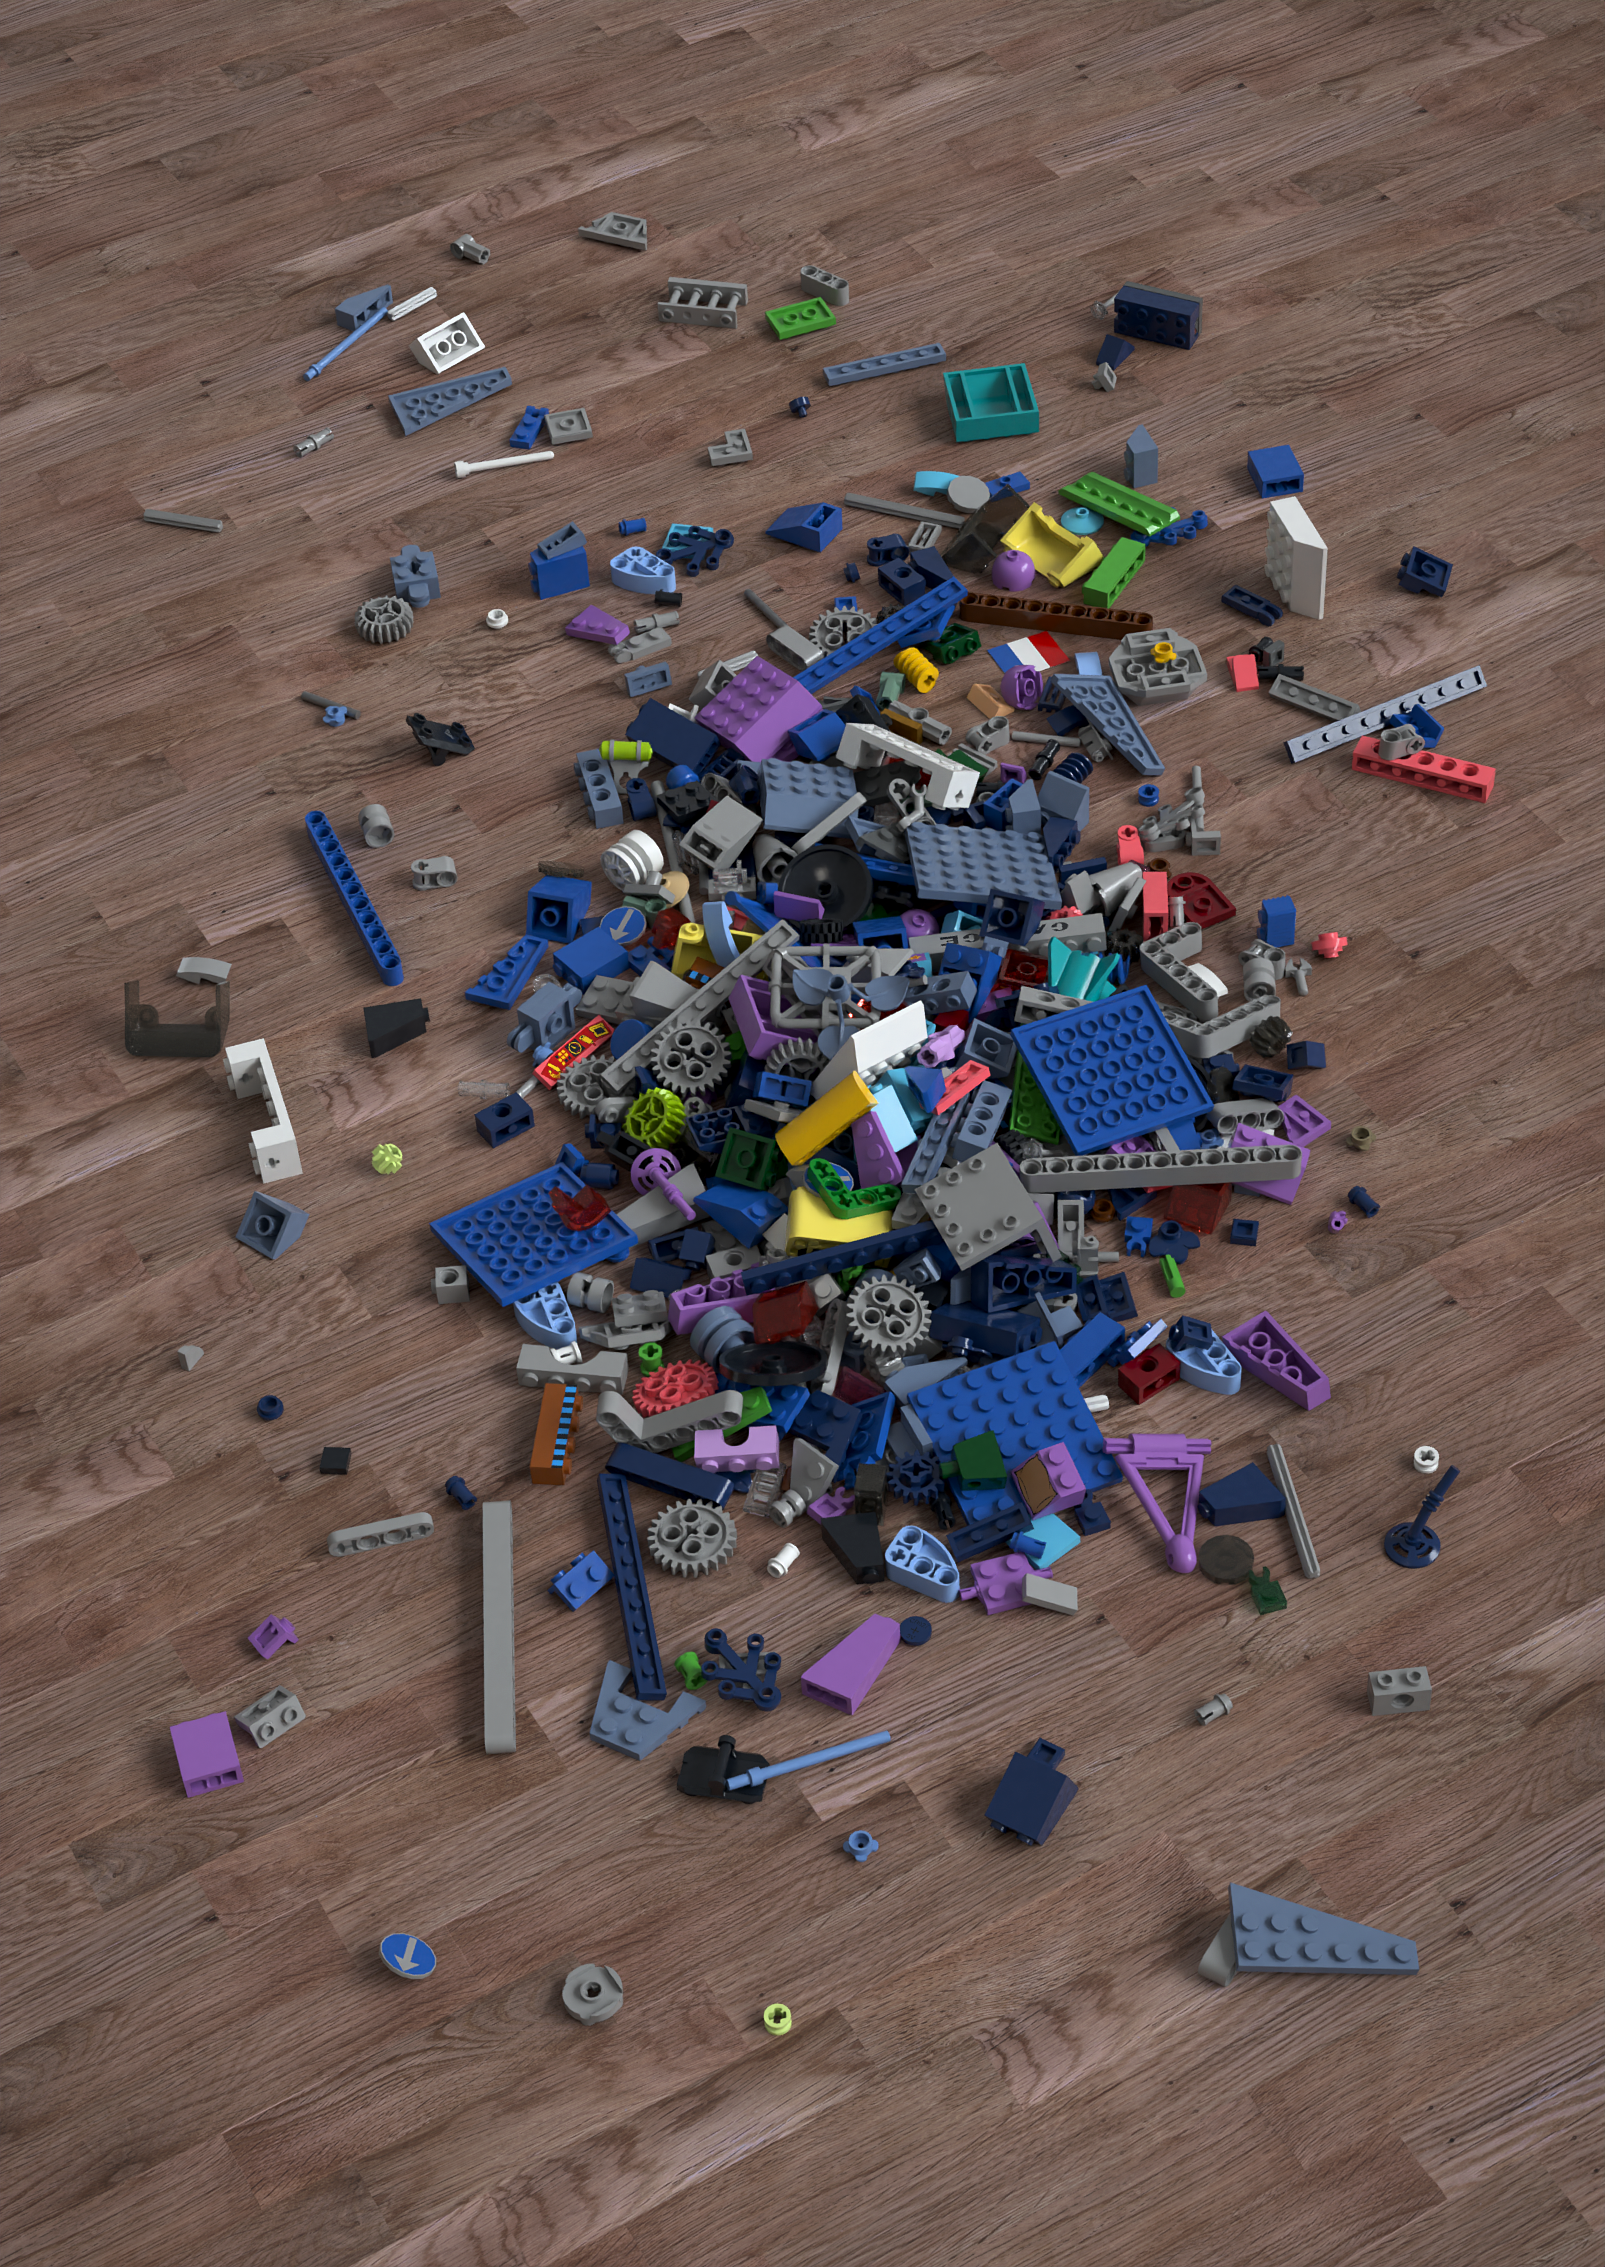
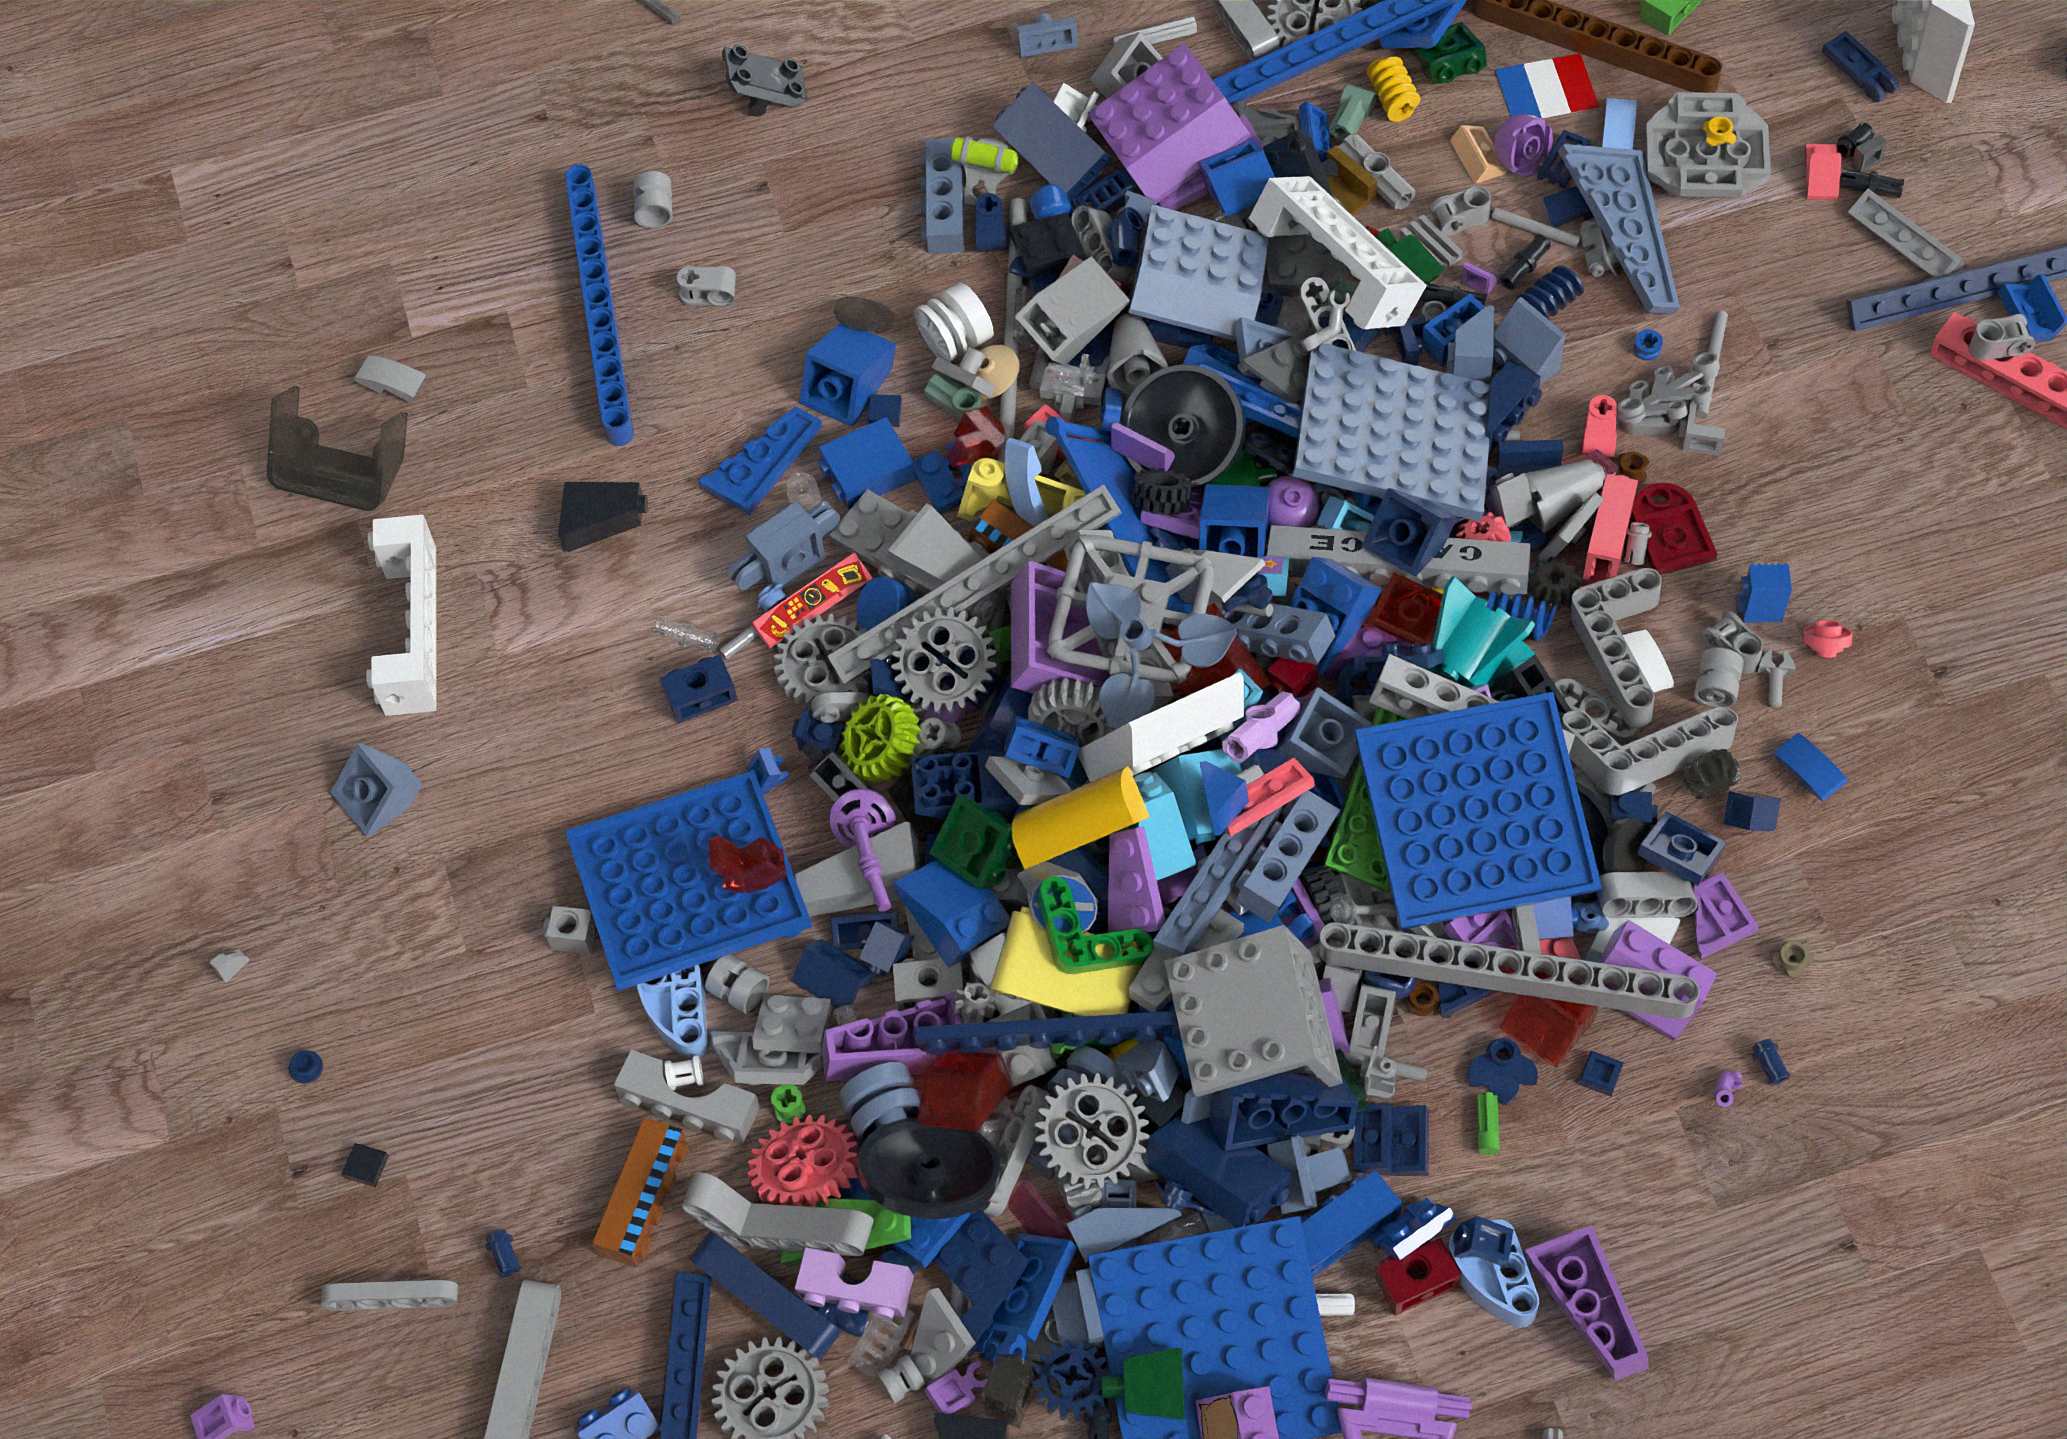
camera: 15 degrees right, 15 degrees up
(335, 715) = (648, 22): medium blue plate -> none
(387, 1158) = (539, 718): yellowish green gear -> none
(599, 1175) = (795, 801): dark blue brick -> none
(624, 925) = (920, 418): blue piece -> none
(829, 823) = (1214, 323): light grey beam -> none
(996, 946) = (1376, 570): sand blue tile -> none
(1138, 1234) = (1461, 1043): blue plate -> none
(1341, 1022) = (1811, 766): none -> blue slope

